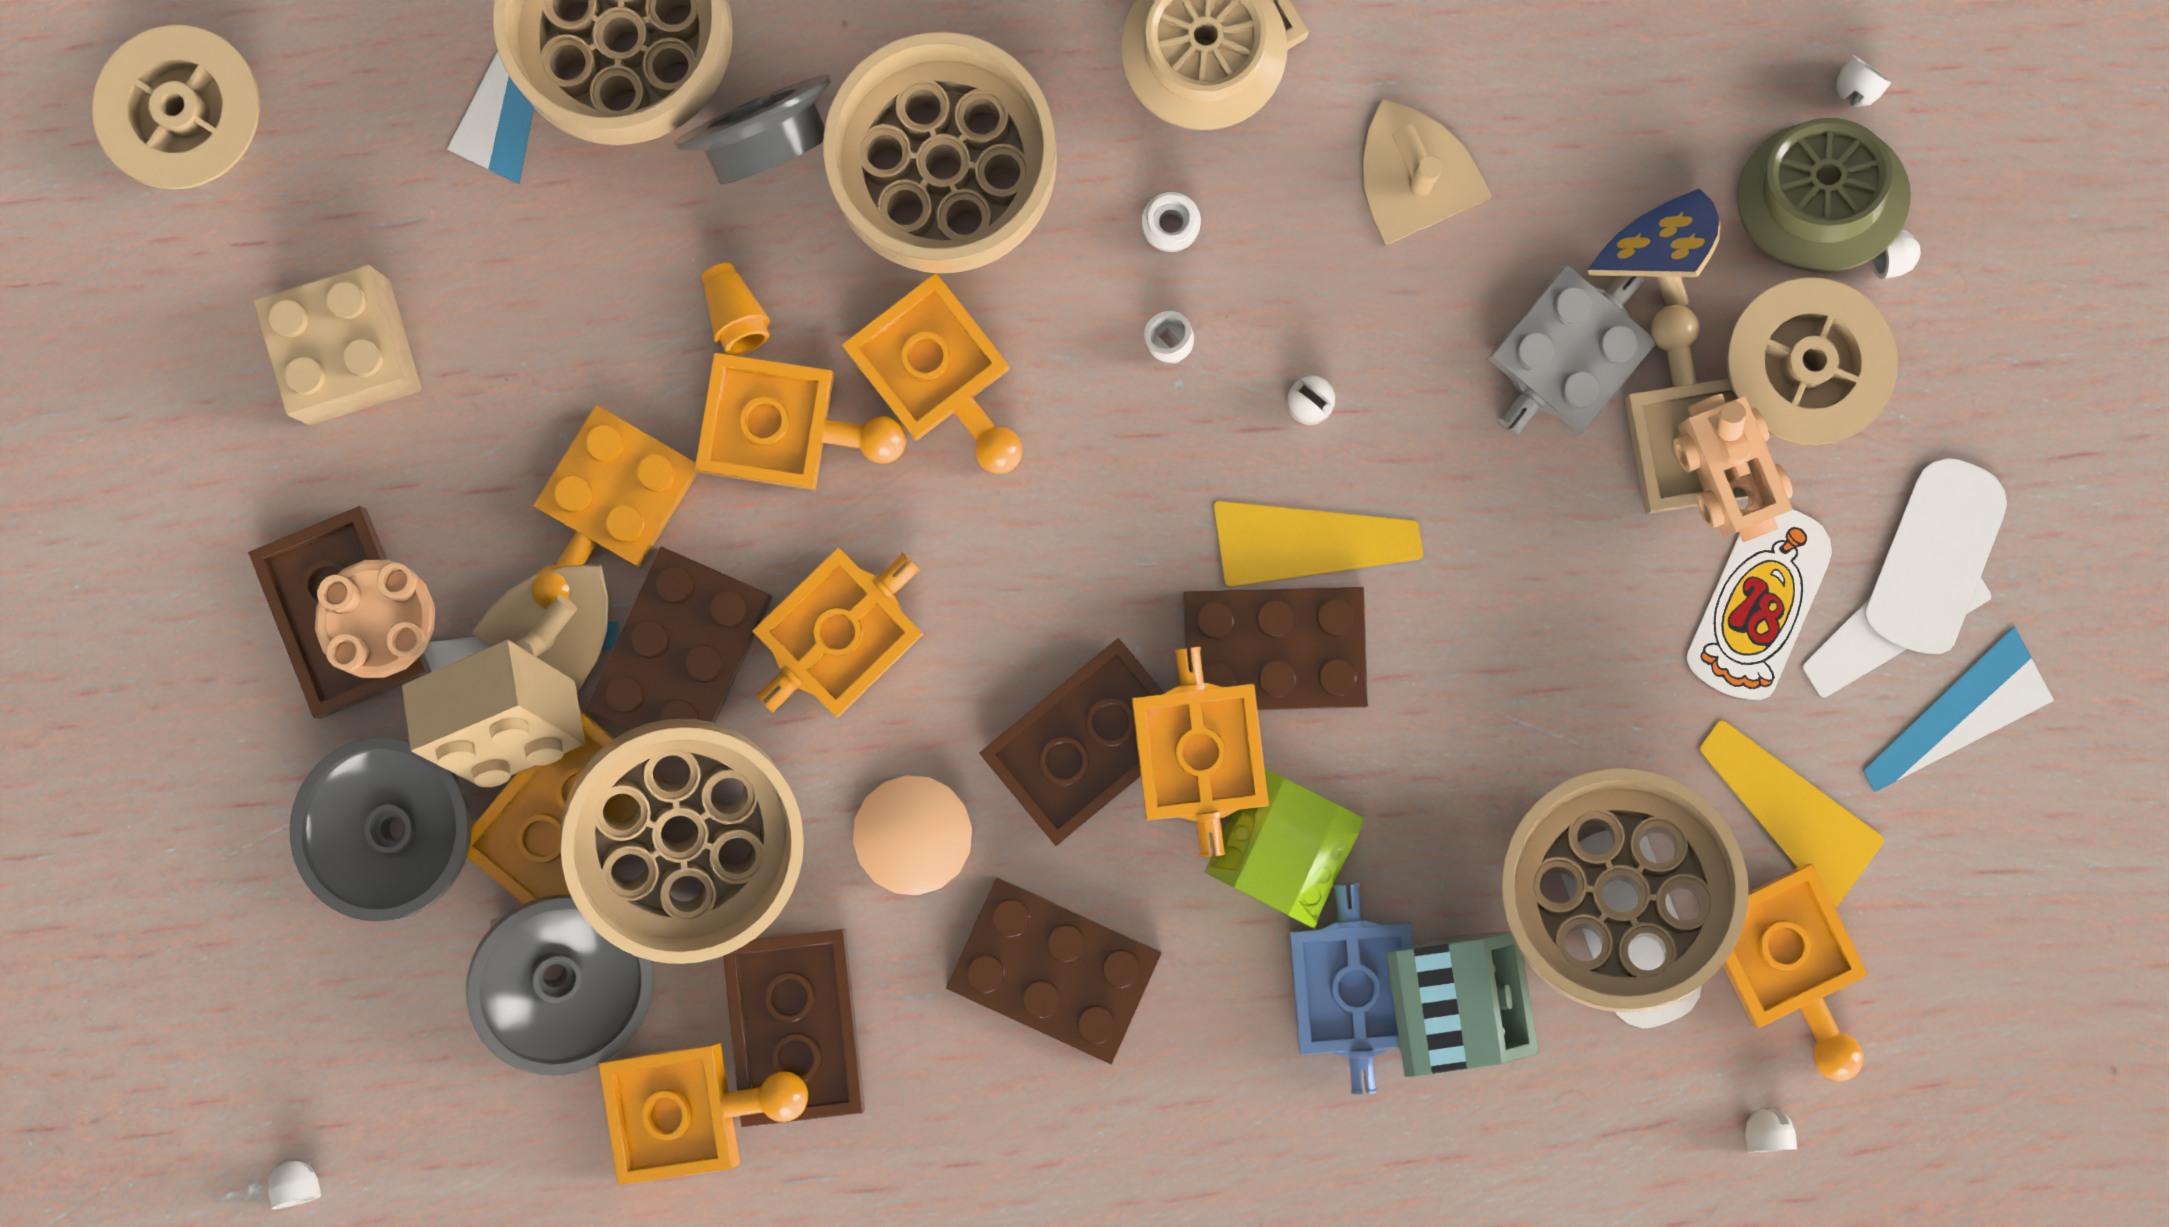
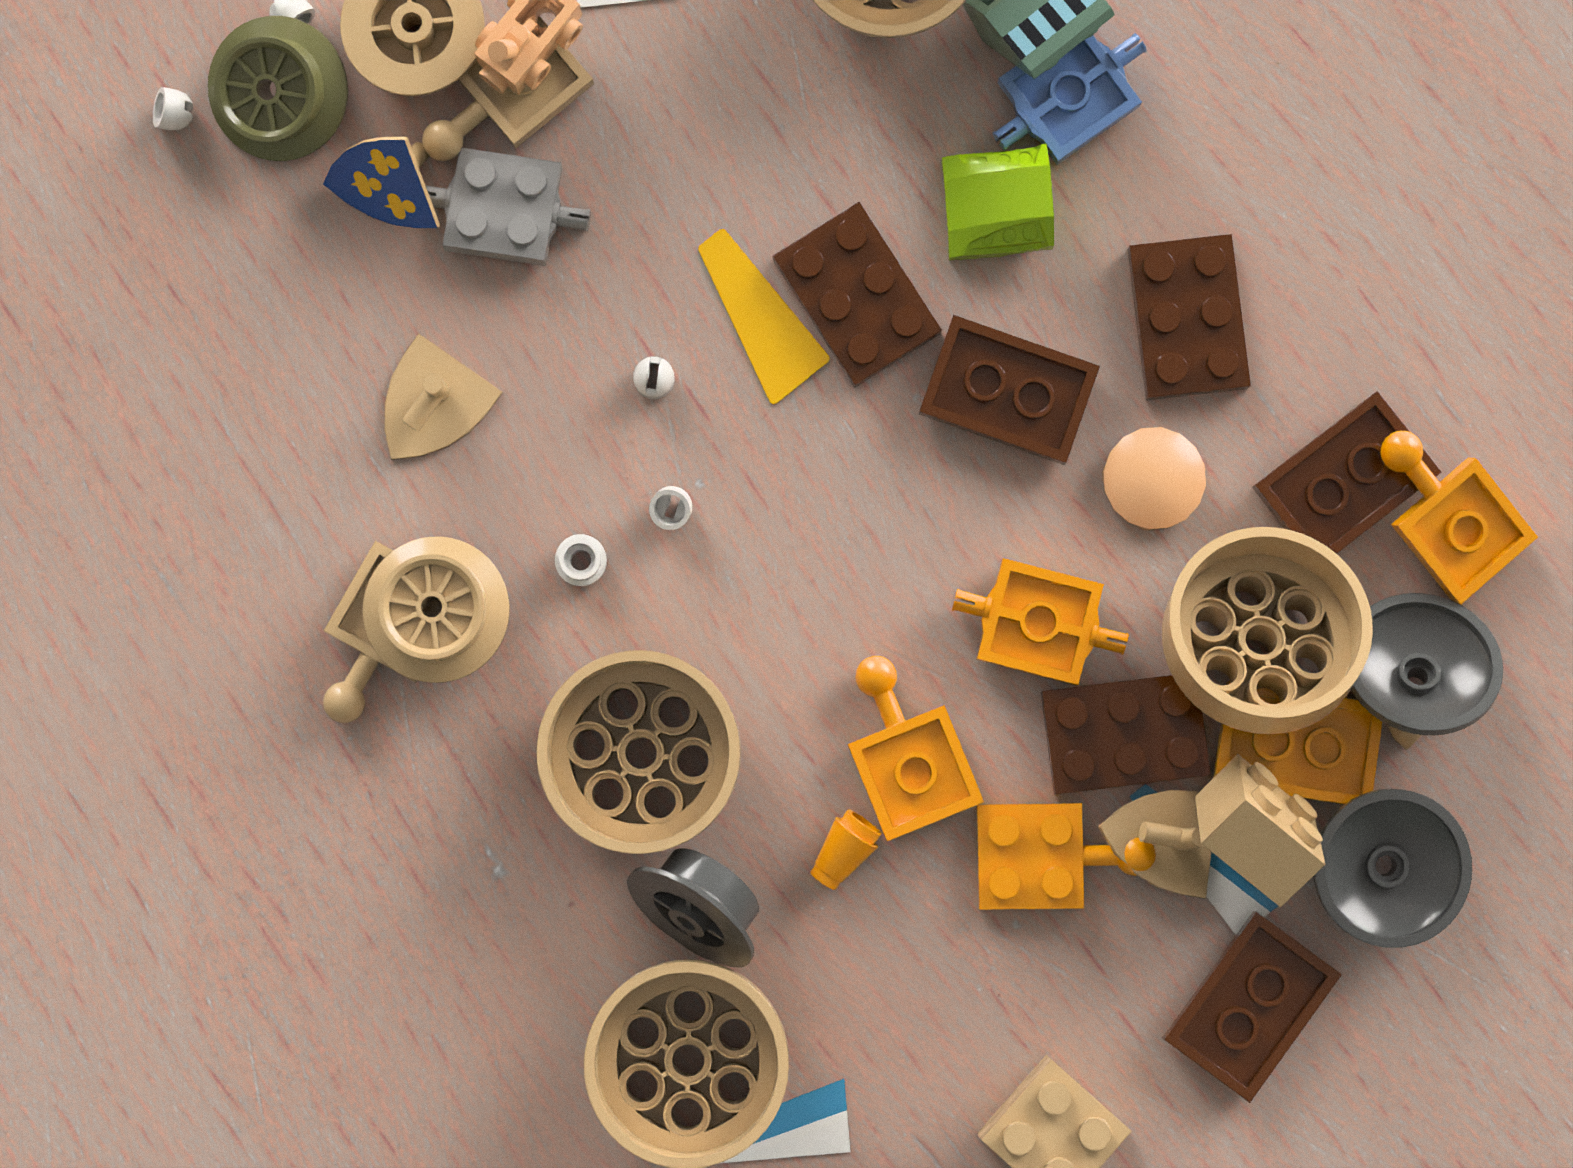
camera: 125 degrees left, 0 degrees up
(374, 618) = (1241, 970): light nougat dish -> none
(931, 363) = (794, 673): light orange plate -> none
(1200, 752) = (969, 299): light orange plate -> none

